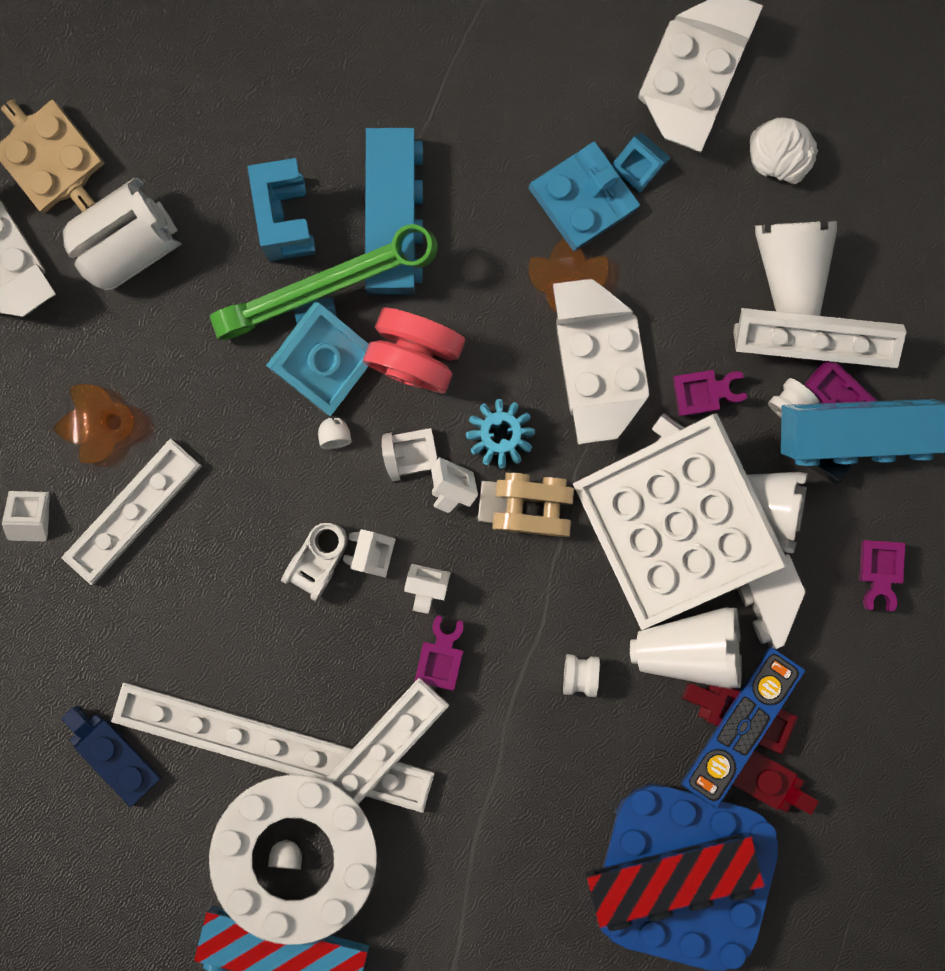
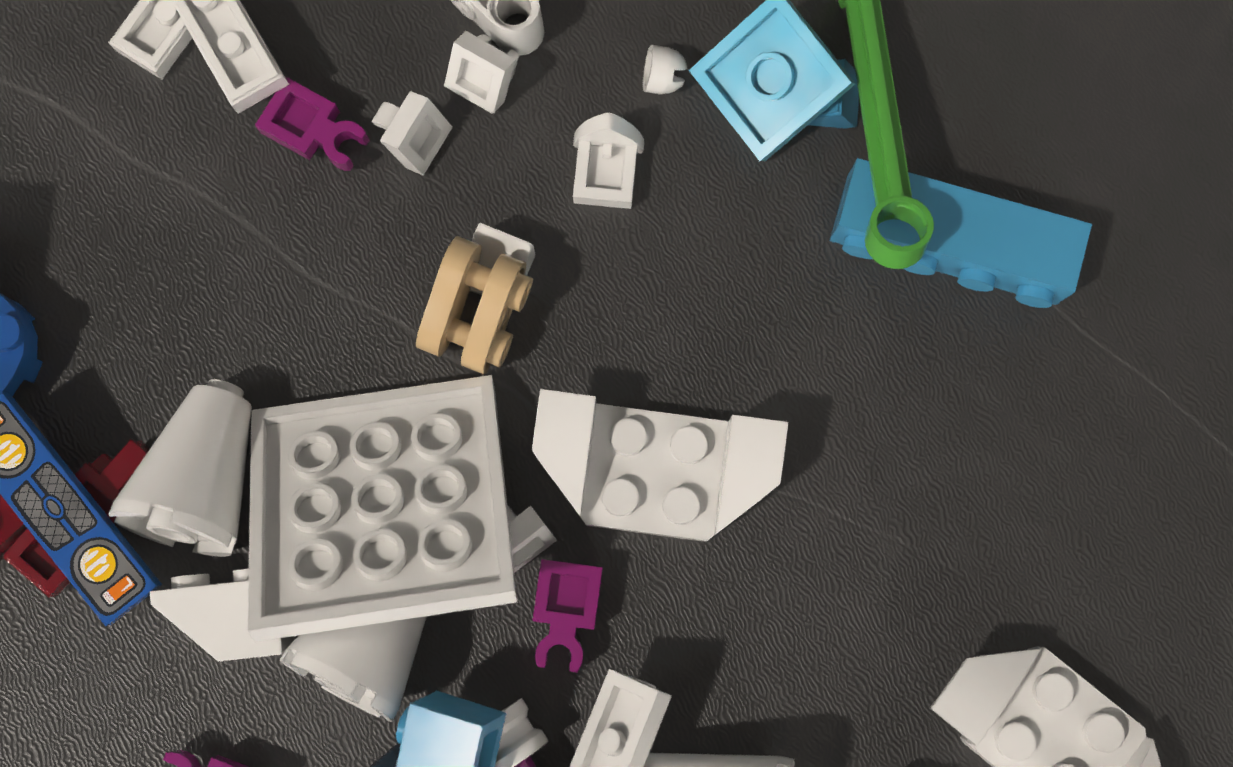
camera: 105 degrees right, 5 degrees down
(269, 186) = (1007, 53): dark azure panel -> none
(414, 350) = (737, 191): coral wheel -> none
(452, 485) = (540, 204): white tile -> none
(495, 421) = (593, 270): medium azure gear -> none
(565, 267) = (809, 463): clear orange plate -> none
(581, 675) = (216, 305): white wheel -> none
(584, 196) = (908, 518): dark azure hinge -> none
(640, 161) = (939, 619): dark azure slope -> none

